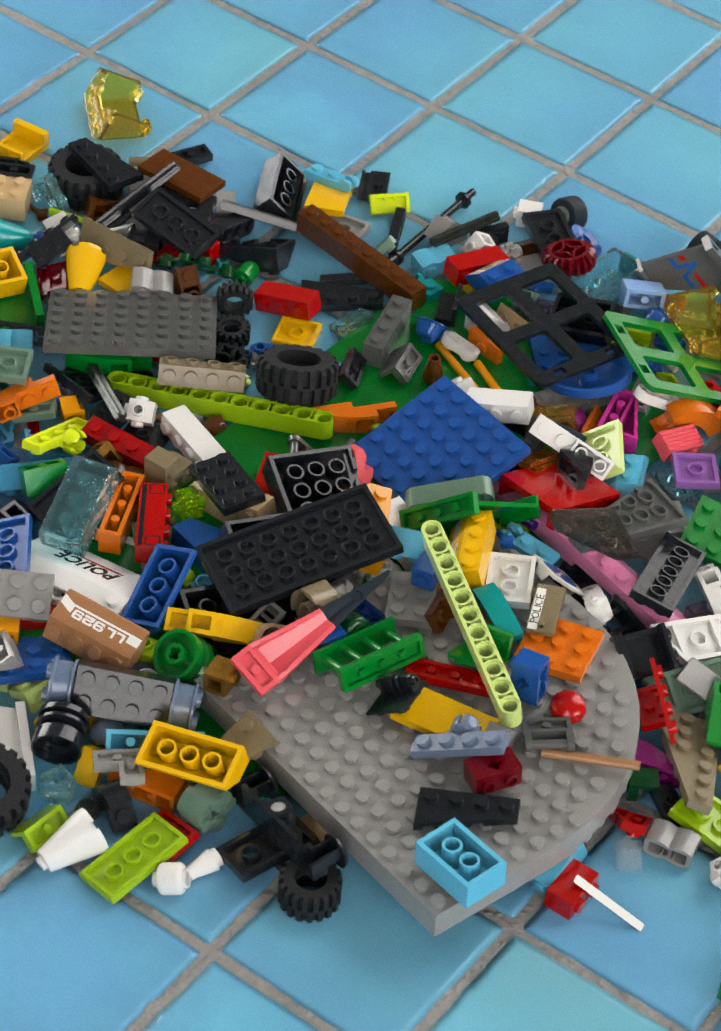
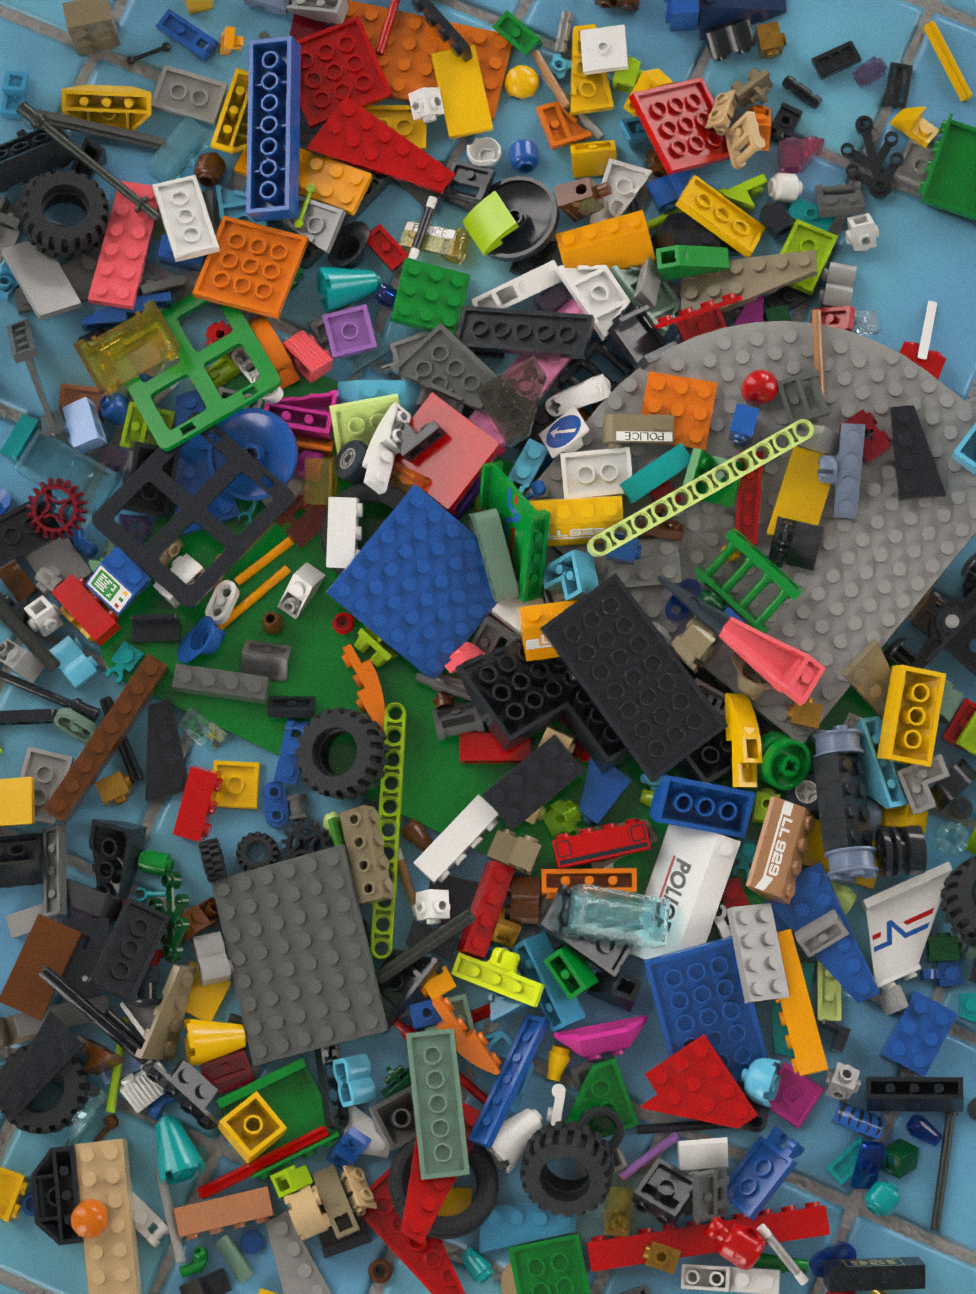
camera: 95 degrees left, 35 degrees up
(317, 262) = (114, 789): none -> pearl gold brick

